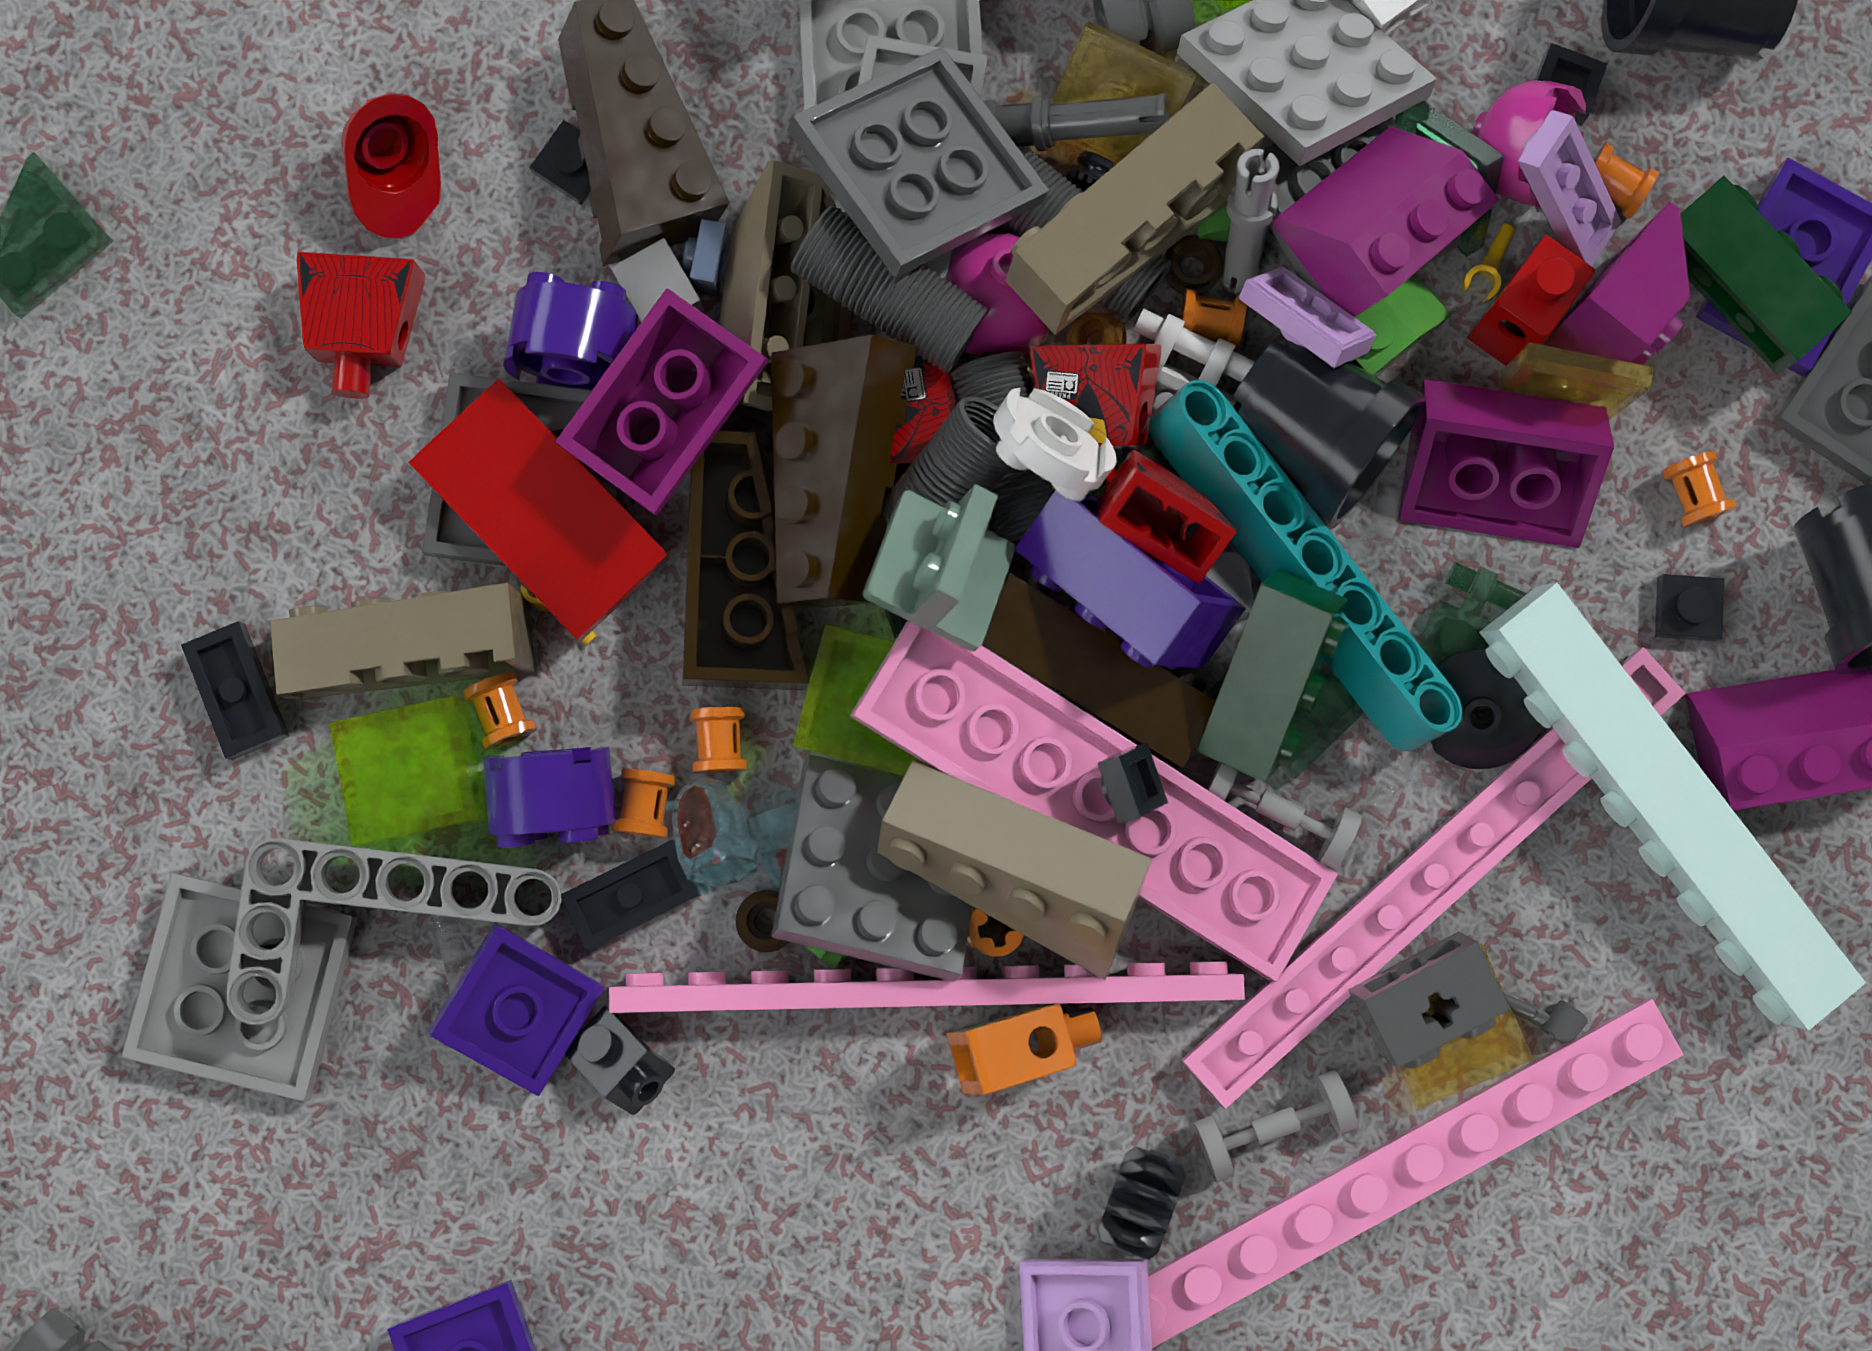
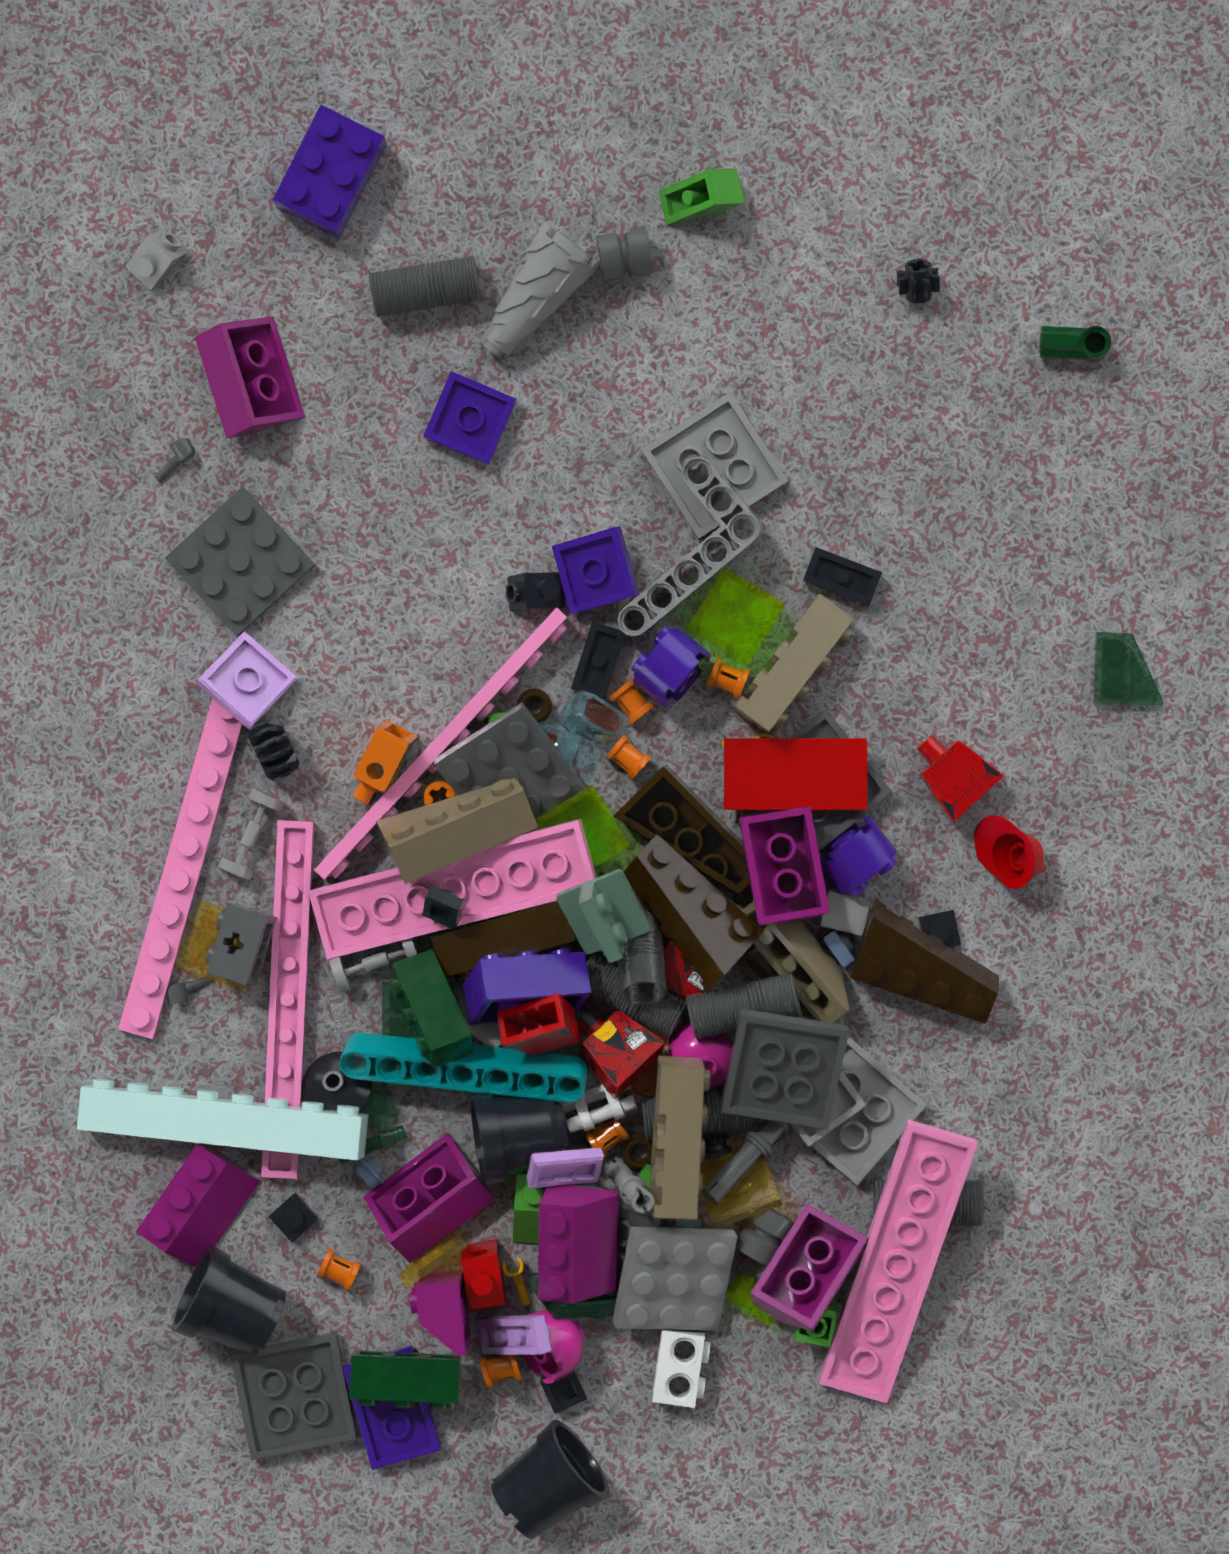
camera: 140 degrees right, 5 degrees up
(1052, 442) = (612, 1009): white plate -> none
(1542, 564) = (369, 1171): none -> sand blue plate

